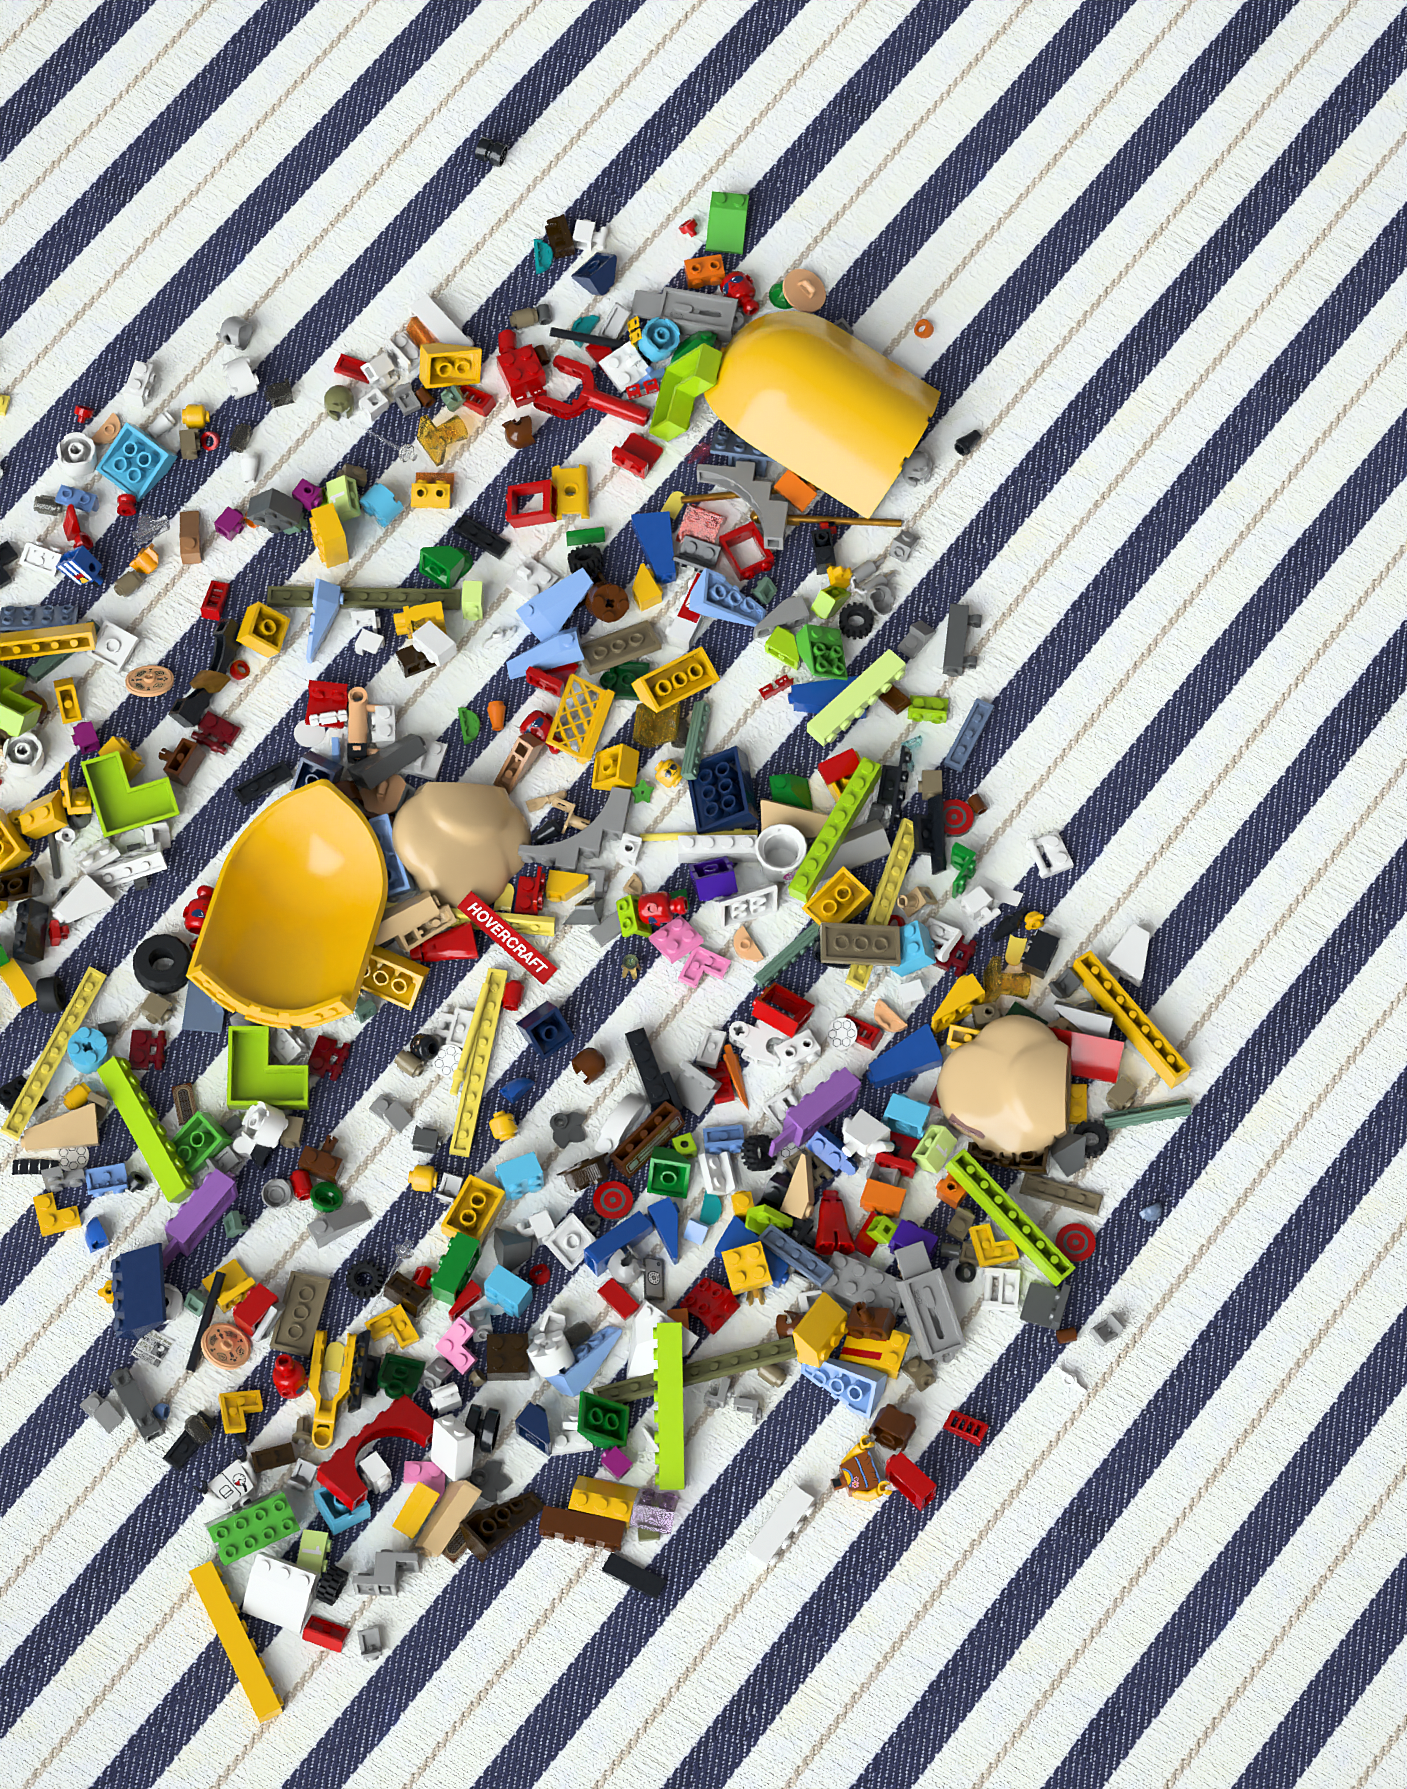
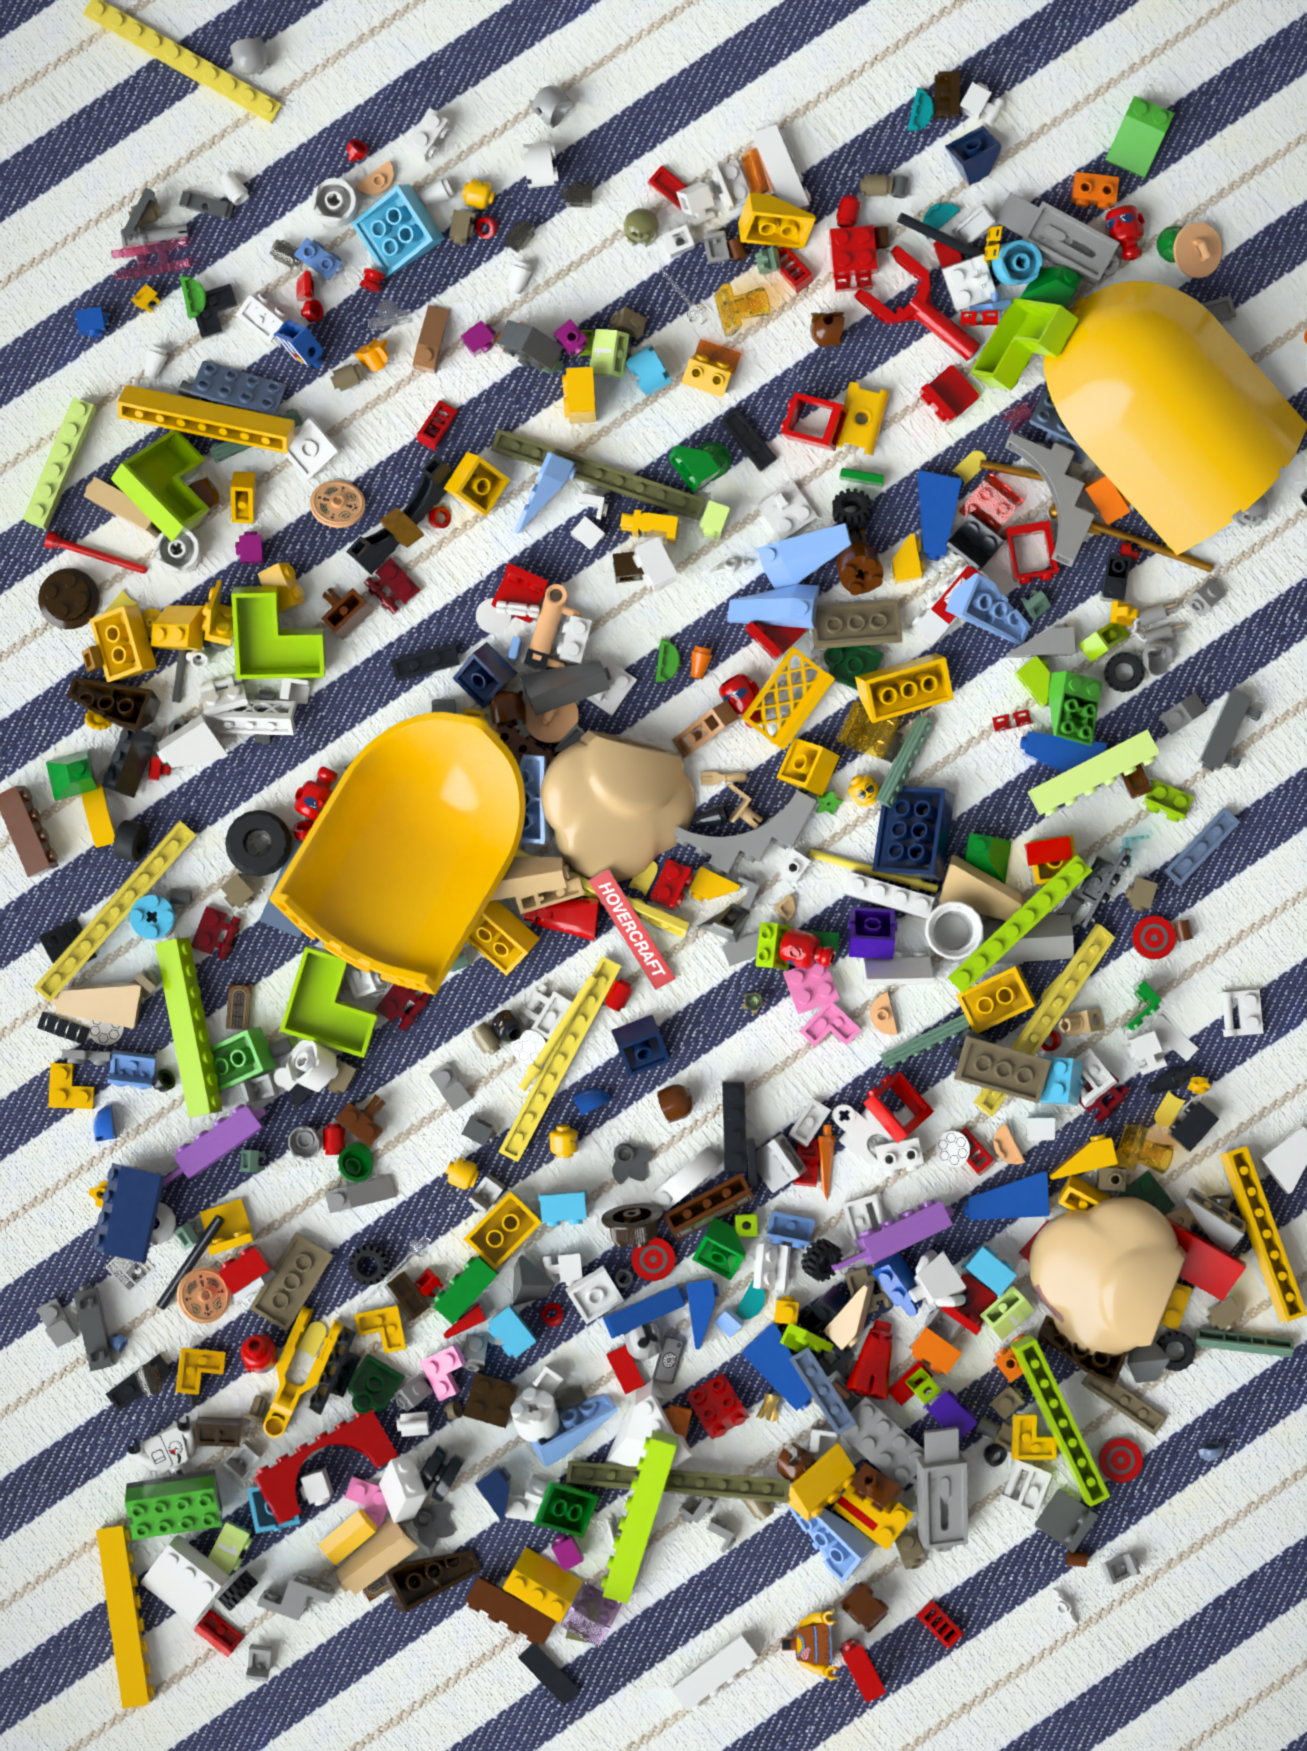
camera: 15 degrees right, 20 degrees up
(76, 1096) = (127, 965): yellow brick -> none
(688, 227) = (1094, 127): red tile -> none
(747, 1268) = (767, 1390): yellow brick -> none
(930, 836) = (1121, 953): black bracket -> none
(1066, 984) = (1208, 1169): dark grey bracket -> none

